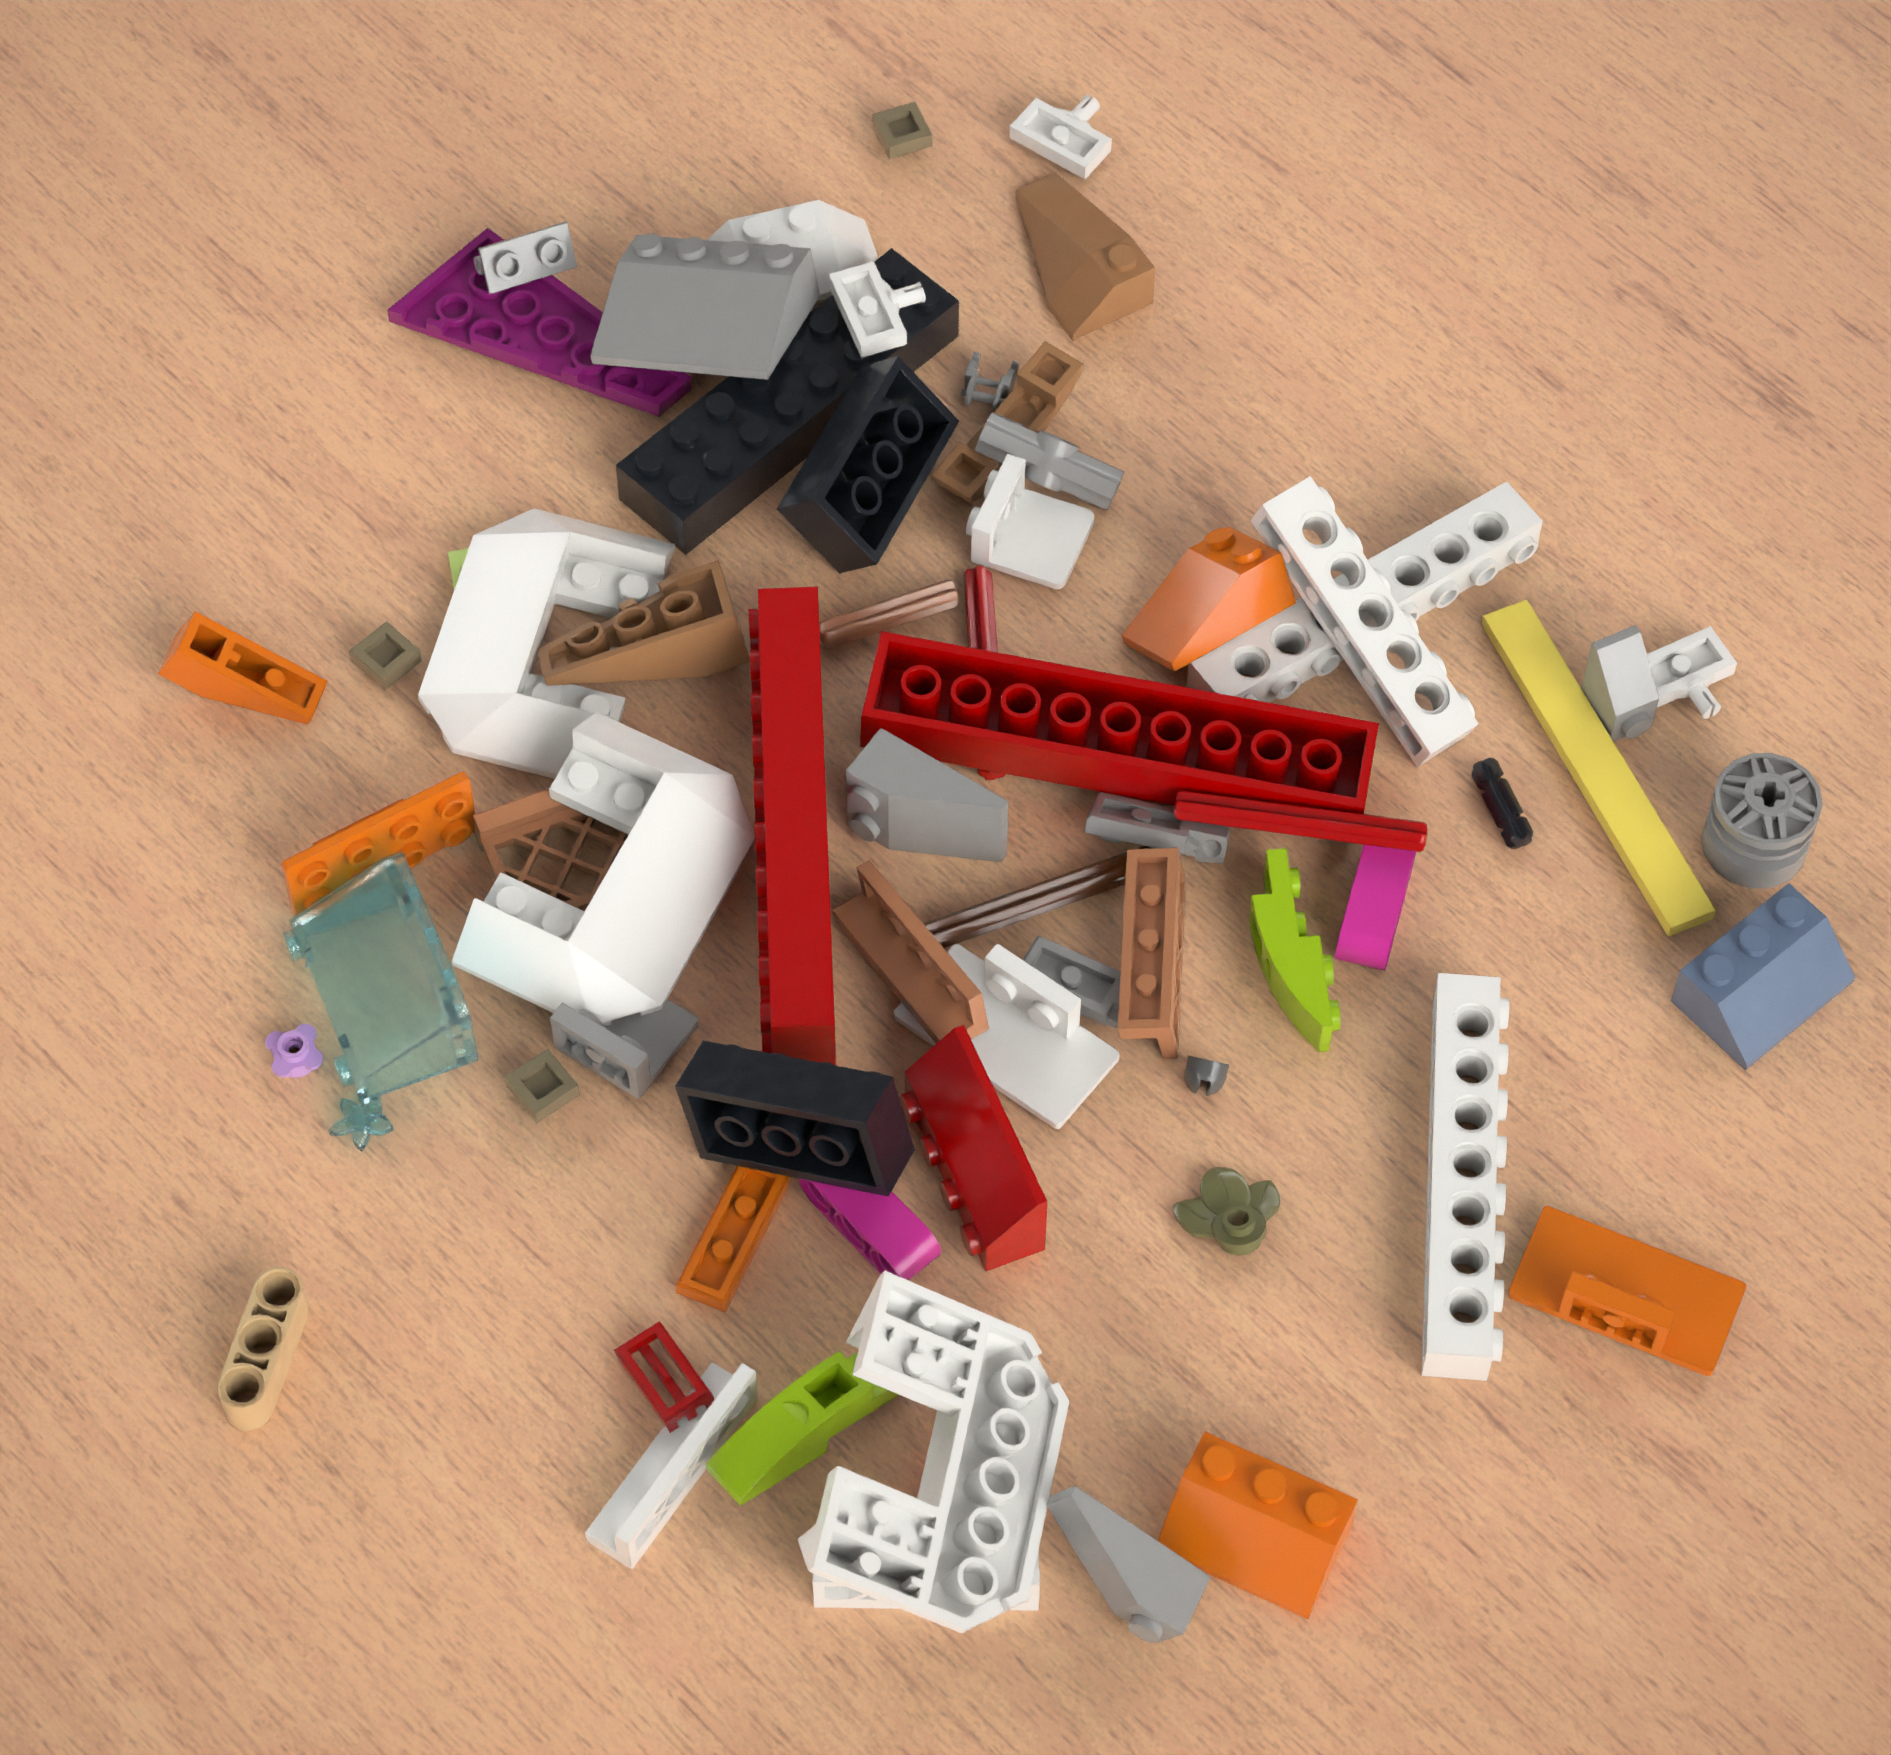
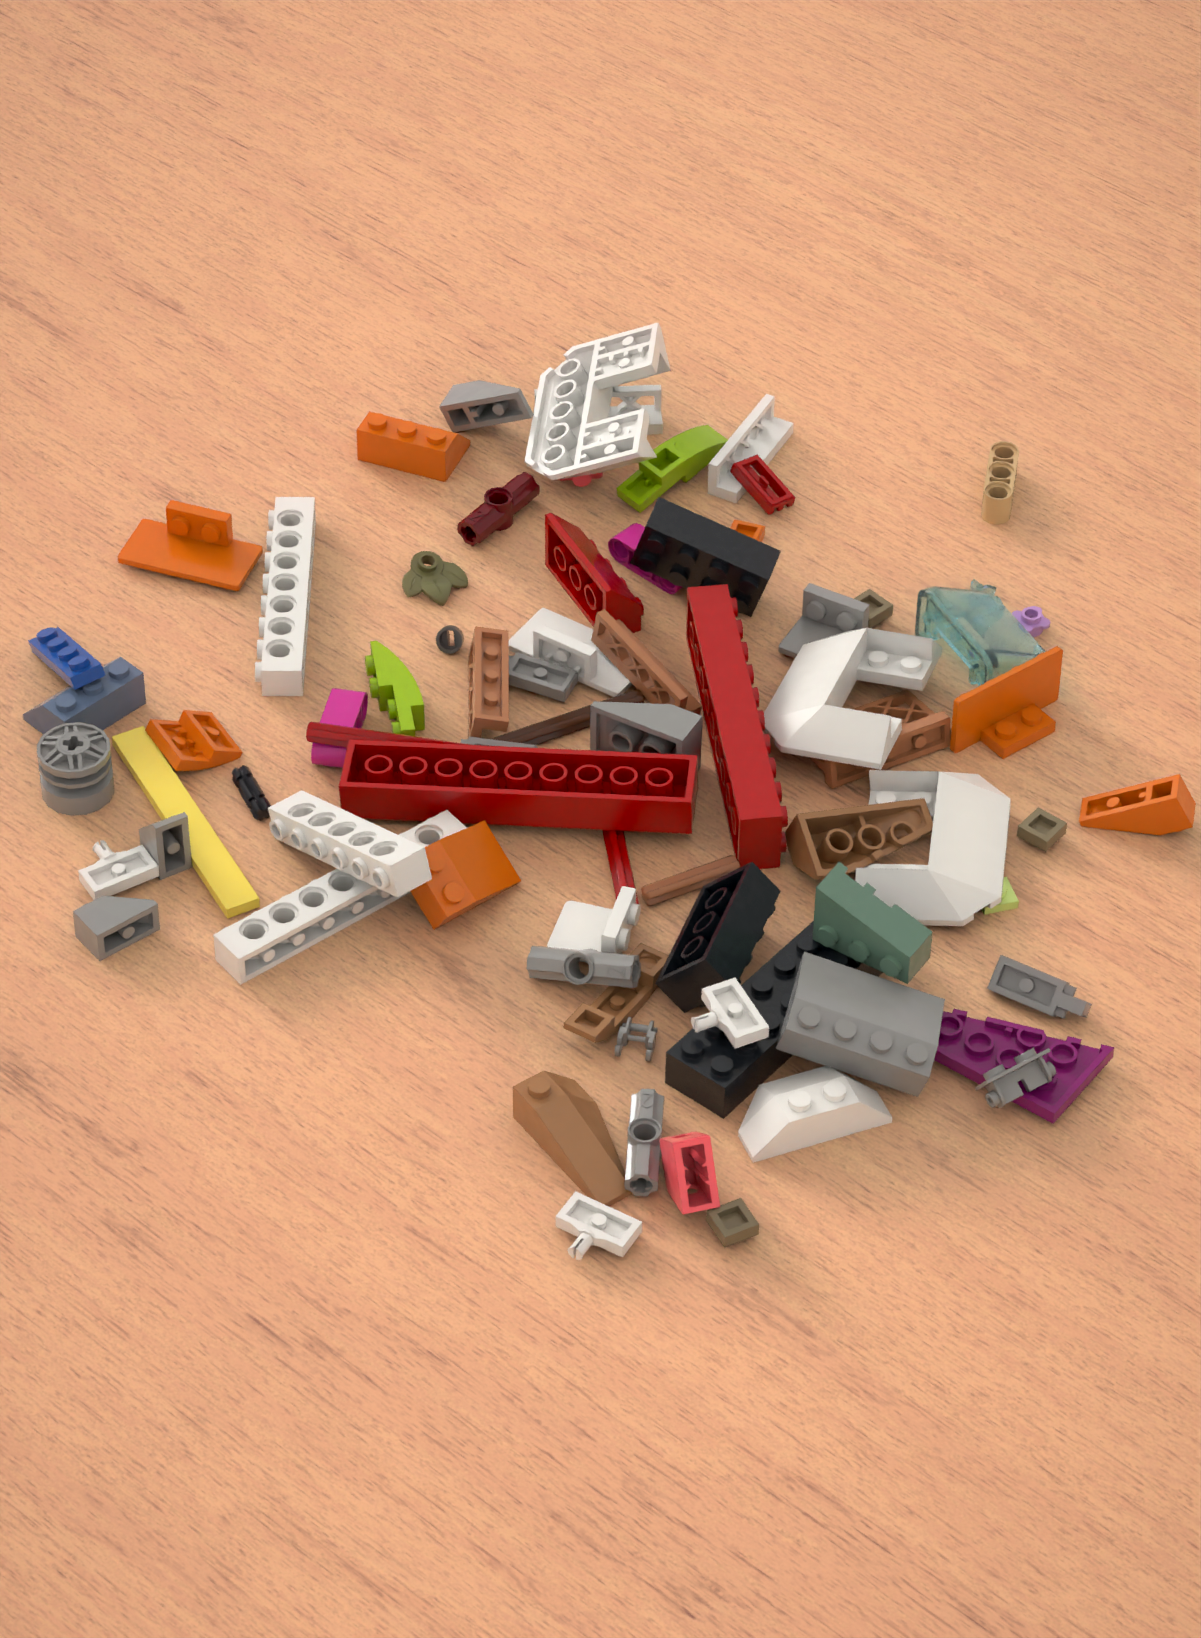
camera: 175 degrees right, 15 degrees down
(458, 404) = (1036, 989): none -> light grey hinge
(675, 397) = (867, 928): none -> sand green wedge
(949, 147) = (690, 1165): none -> coral torso
(995, 227) = (643, 1142): none -> light grey piece
(1137, 1323) = (498, 509): none -> dark red piece
(1593, 899) = (193, 741): none -> orange slope
(1678, 580) = (114, 923): none -> light grey slope
(1801, 1024) = (66, 657): none -> blue plate

